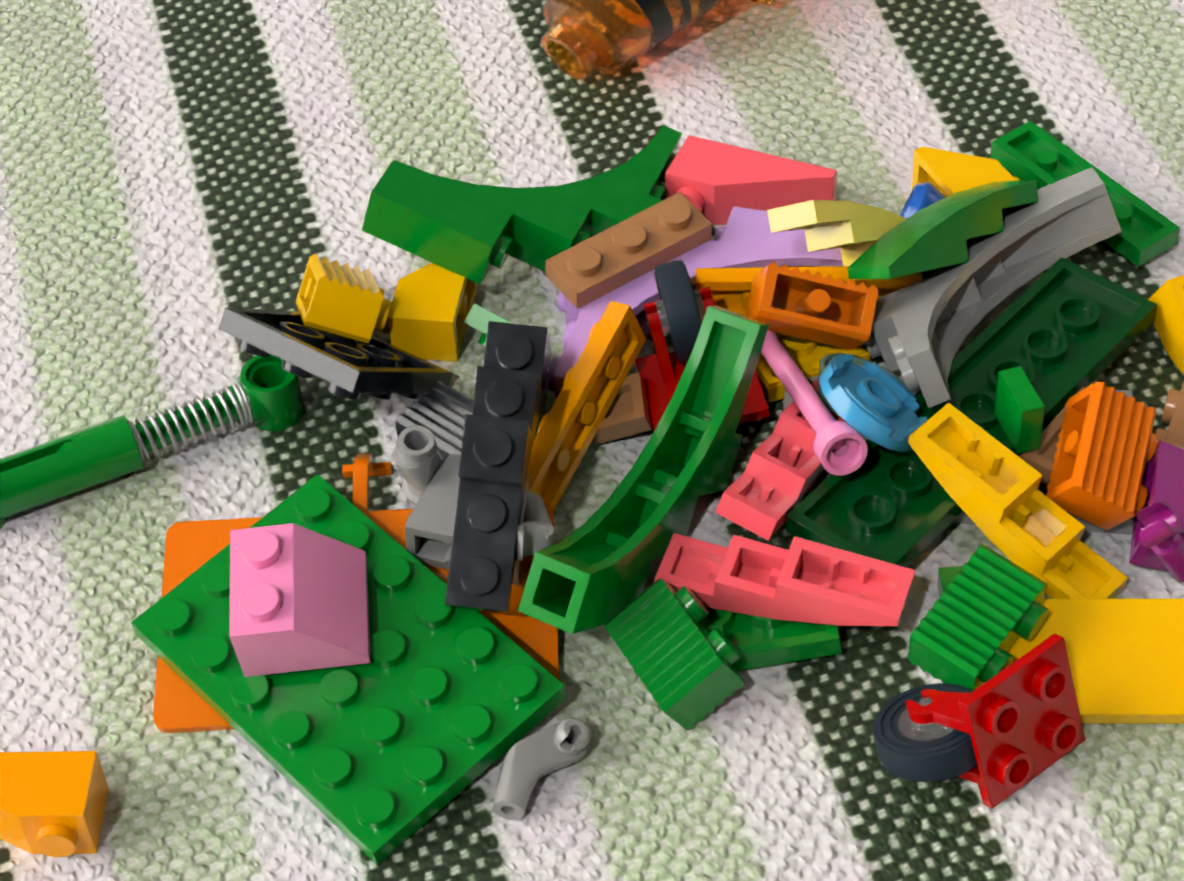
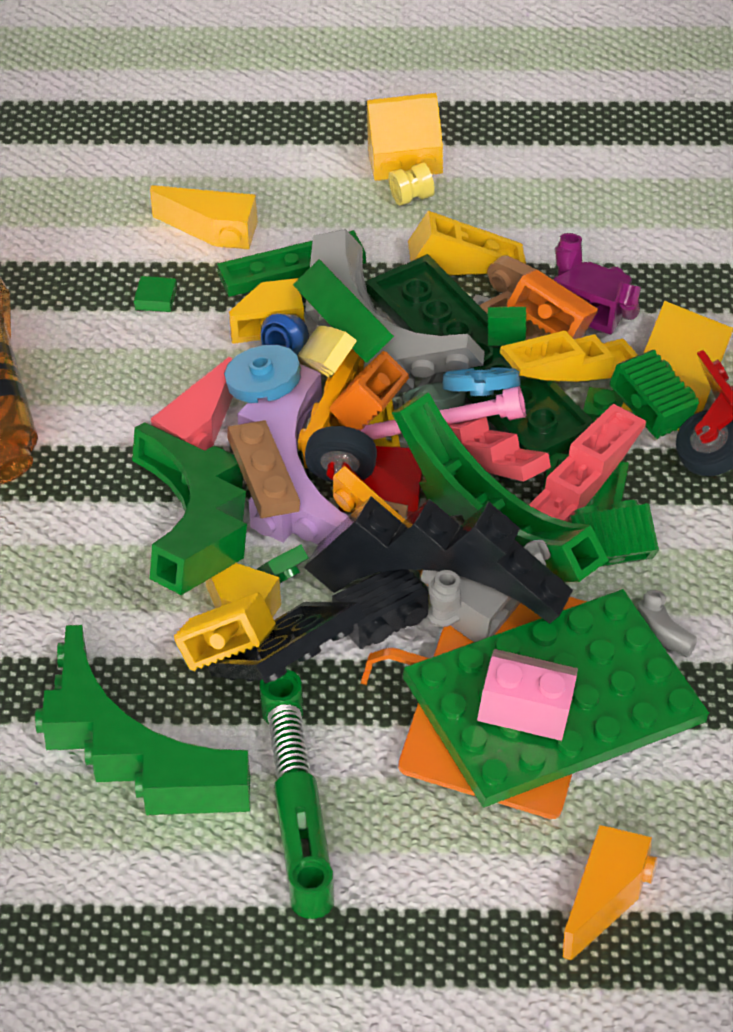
camera: 75 degrees left, 0 degrees up
(163, 271) = (166, 772): none -> green arch
(801, 186) = (262, 373): none -> dark azure plate
(957, 93) = (155, 294): none -> green tile
(1129, 100) = (211, 216): none -> yellow slope

